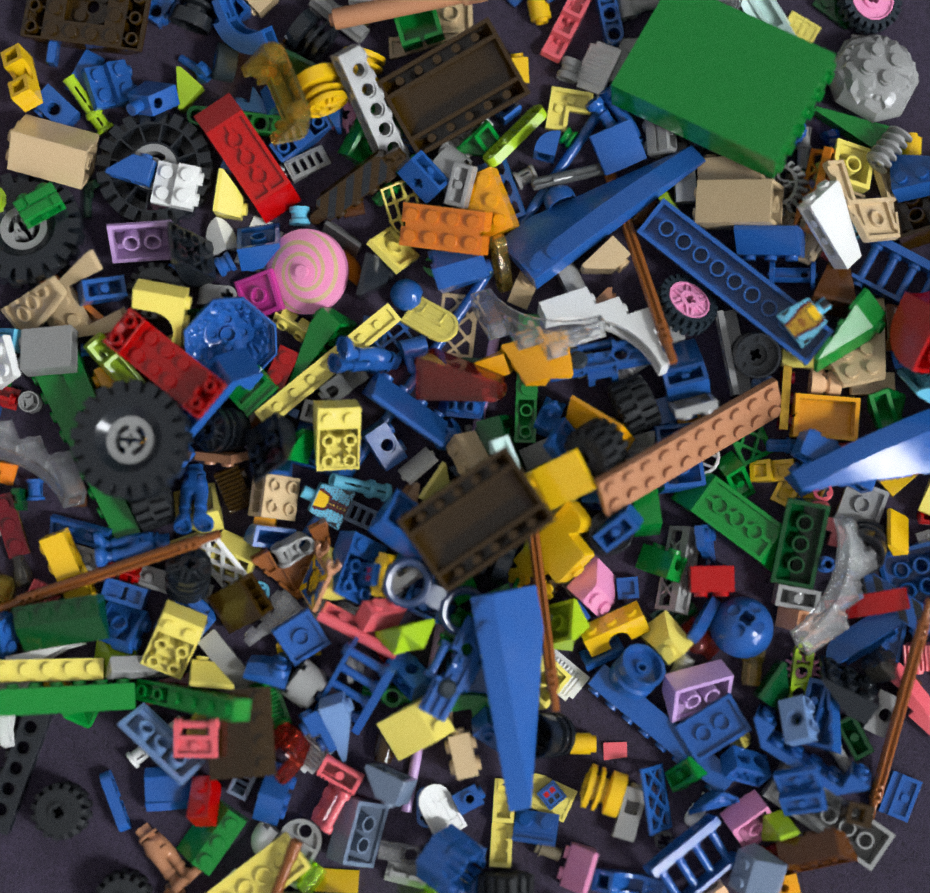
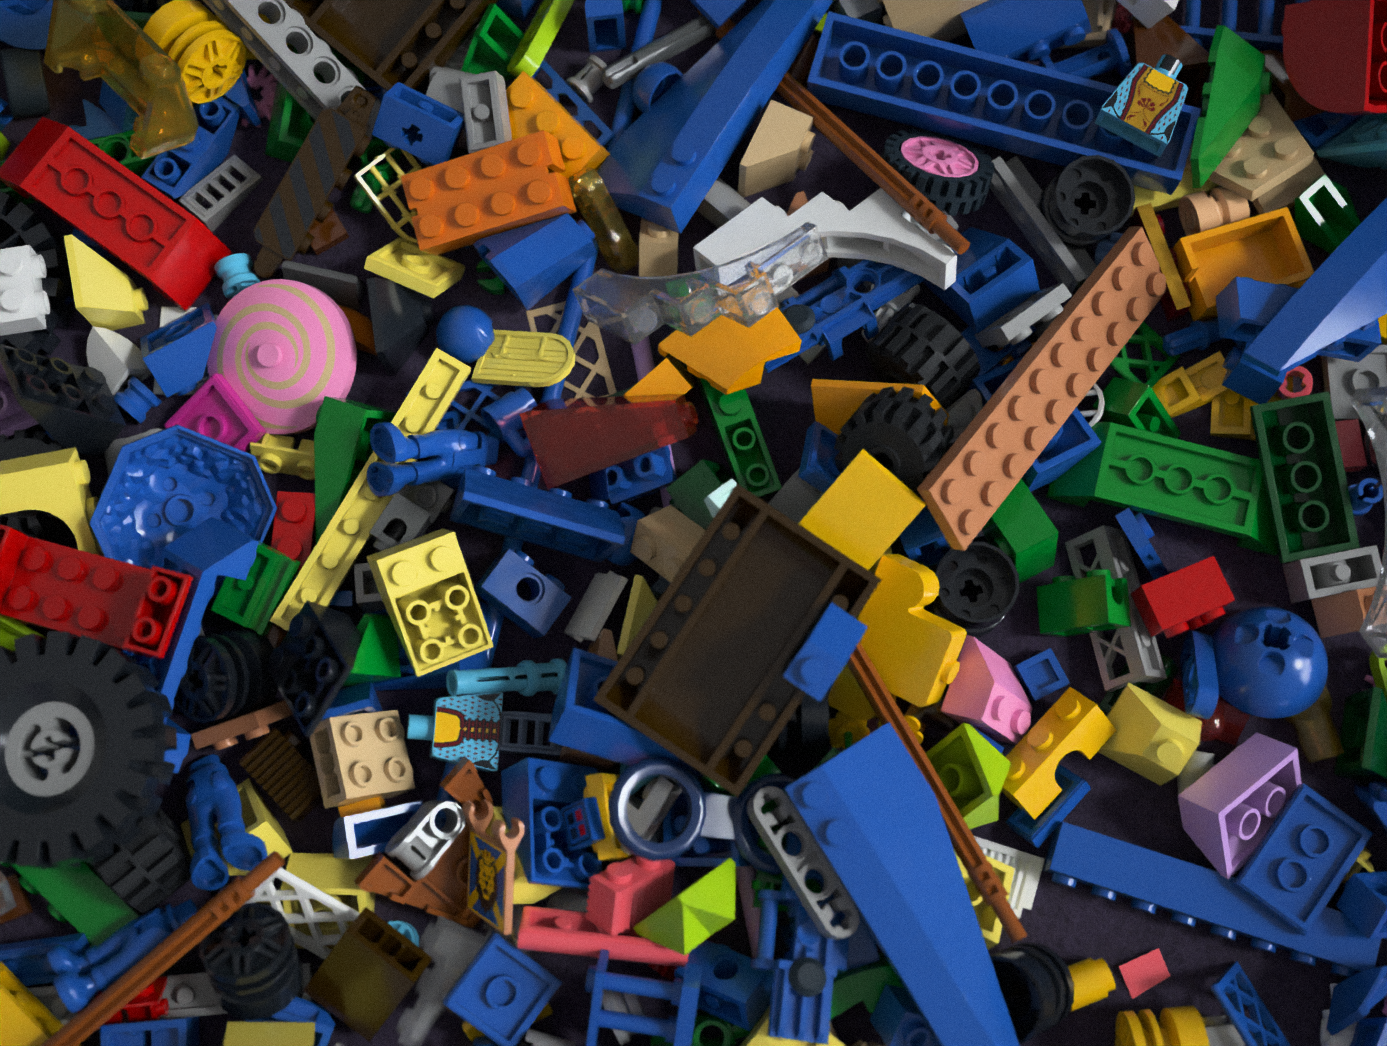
camera: 20 degrees left, 10 degrees down
(469, 634) = (808, 859): none -> light grey beam
(514, 543) = (825, 652): none -> blue slope
(548, 416) = (786, 437): blue hips -> none
(618, 528) = (989, 567): blue brick -> none
(637, 671) = (1128, 810): blue wheel -> none
(684, 774) = (1290, 963): green slope -> none

